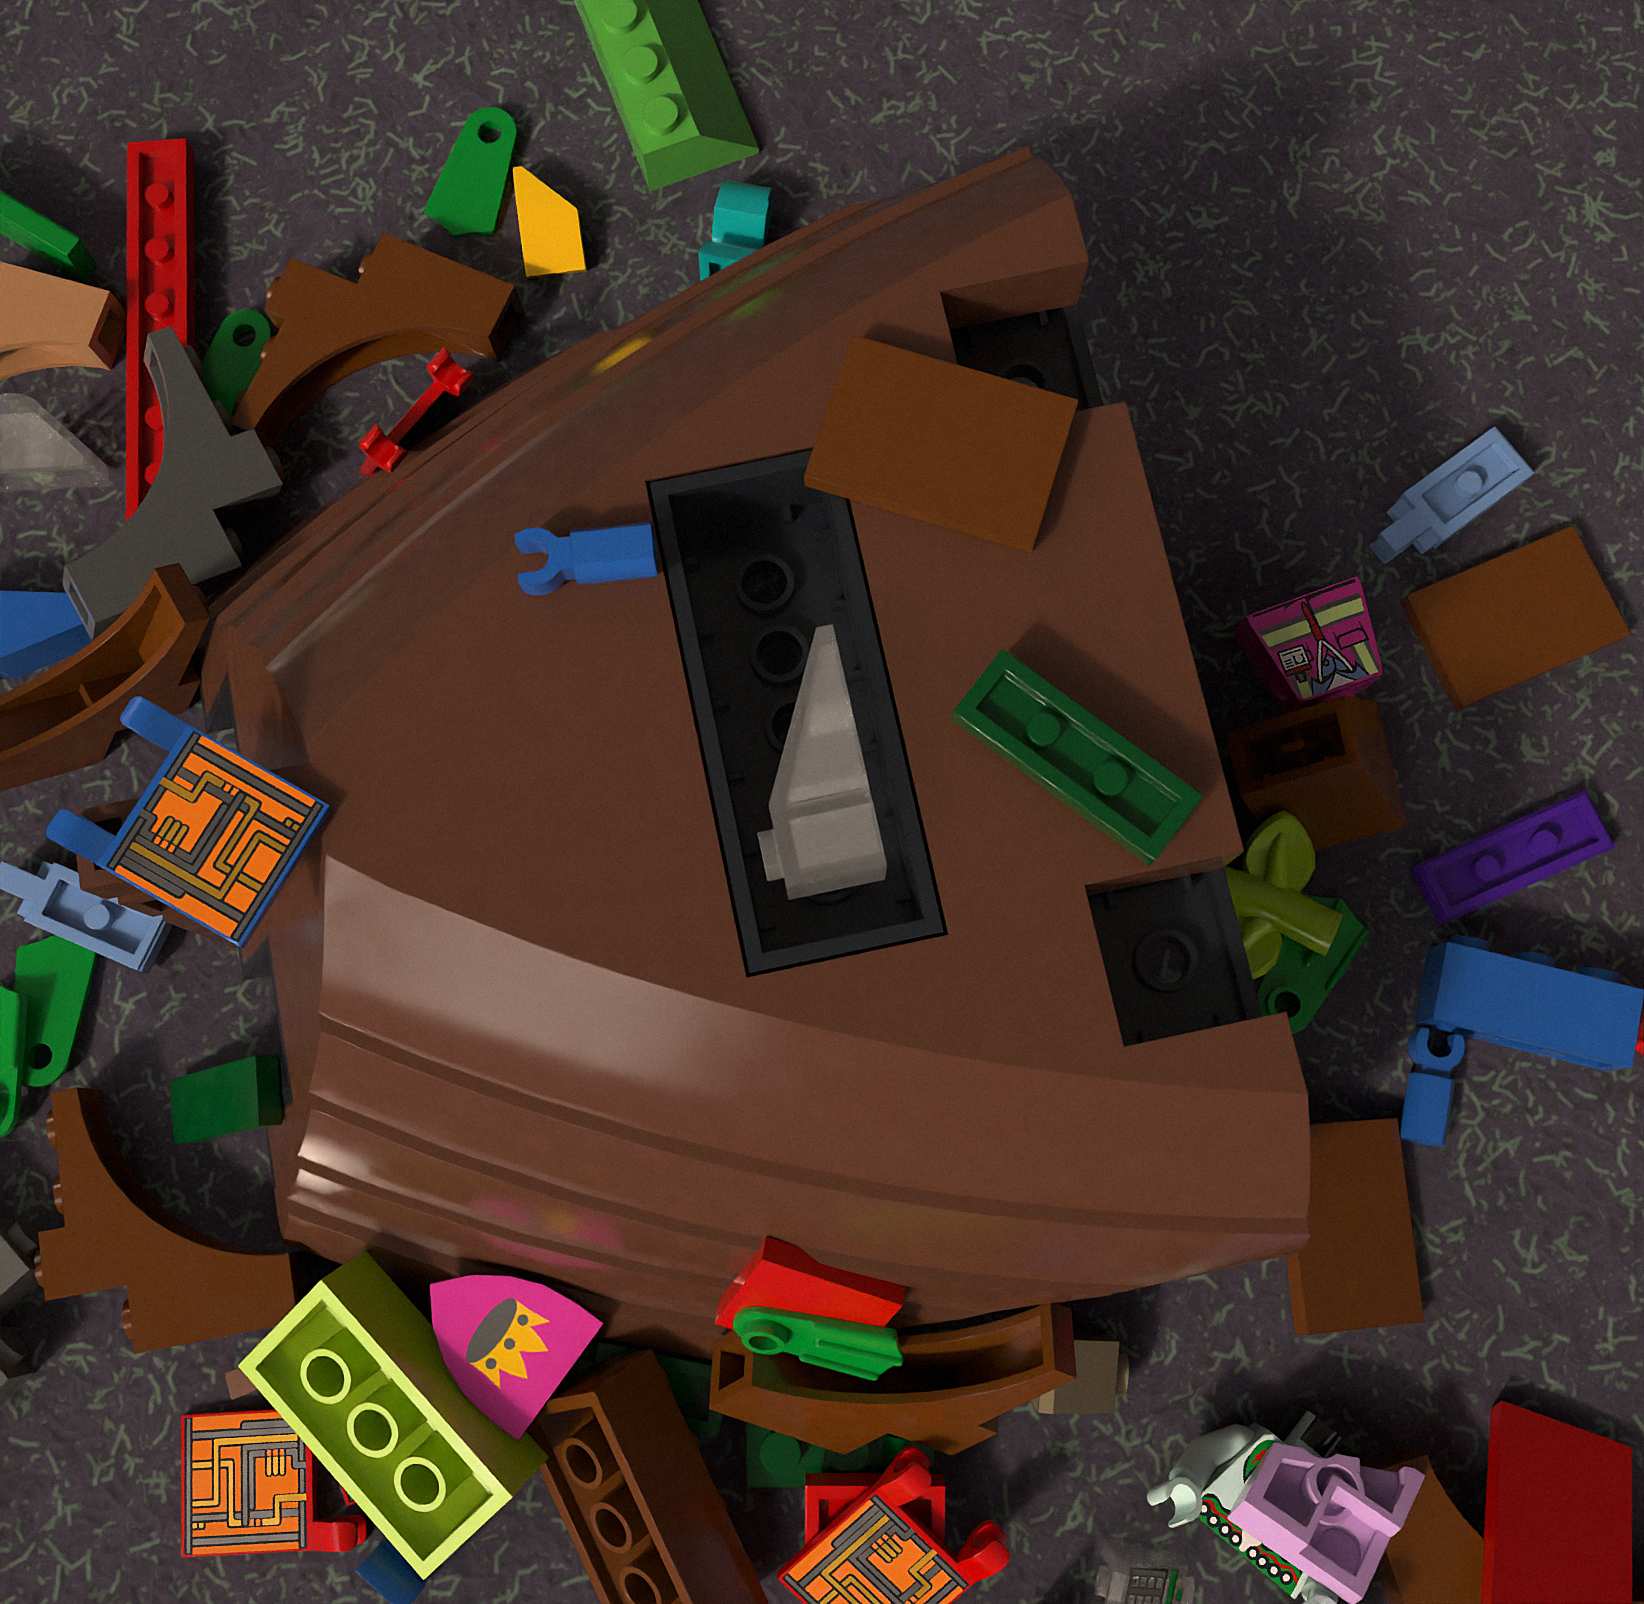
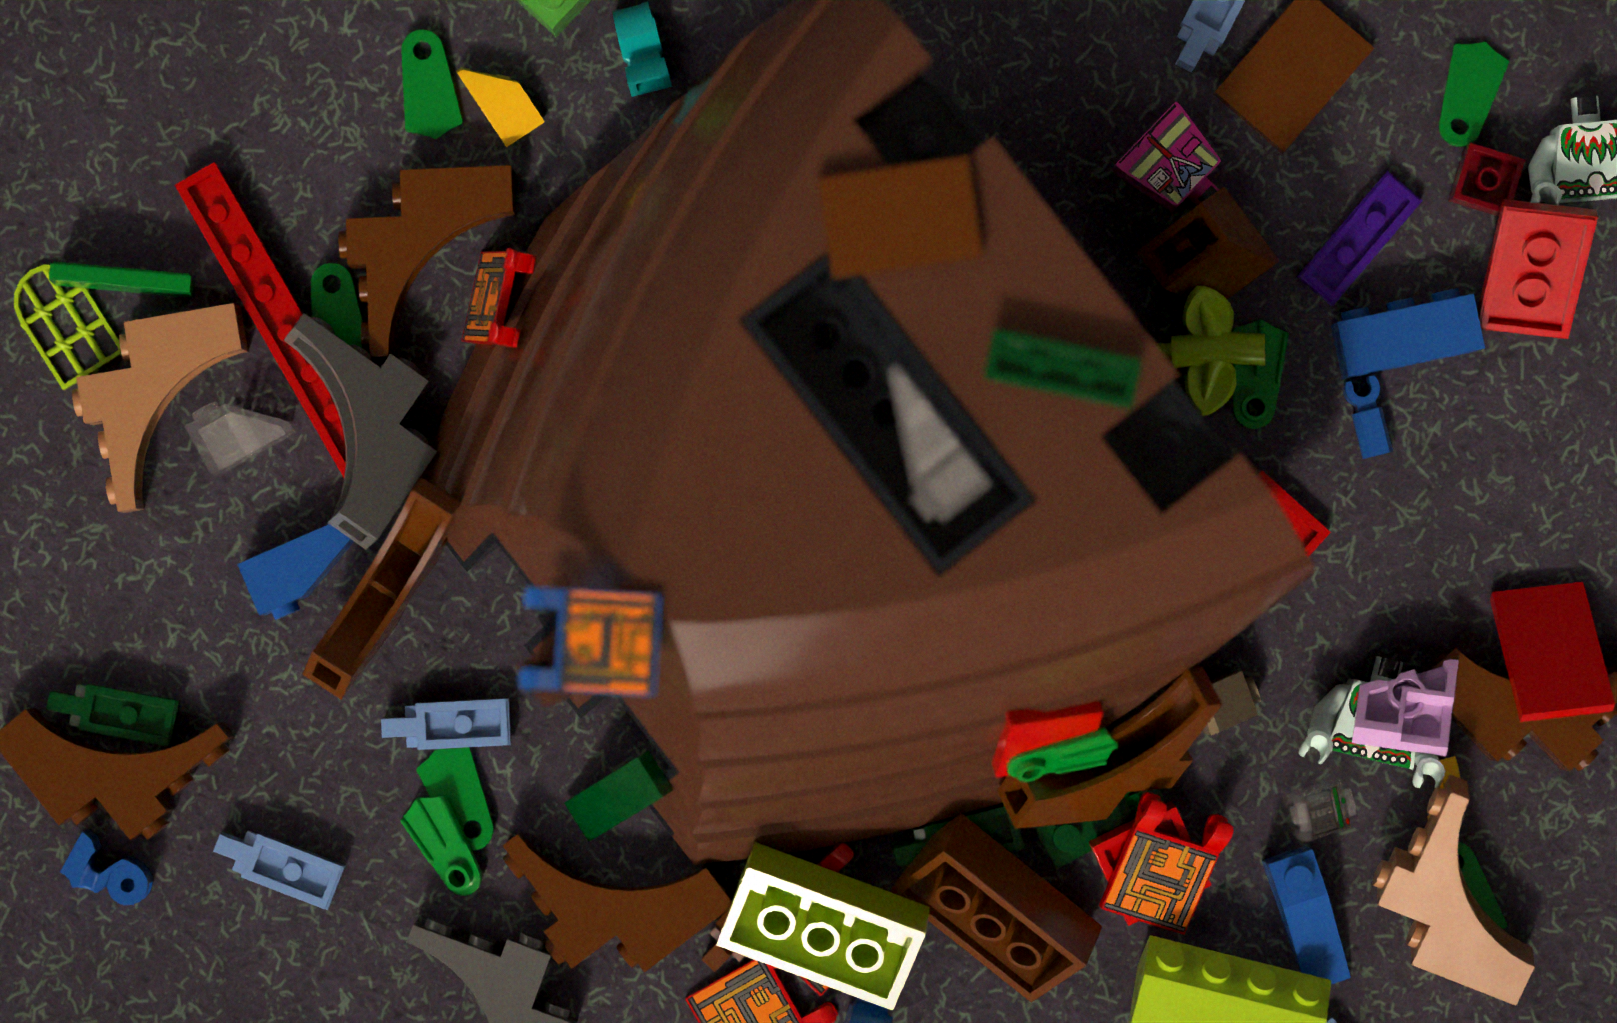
camera: 30 degrees left, 10 degrees up
(508, 1342) = (874, 850): dark pink shield -> none
(589, 555) = (735, 381): blue bar -> none
(1361, 1242) = (1351, 530): reddish brown tile -> none

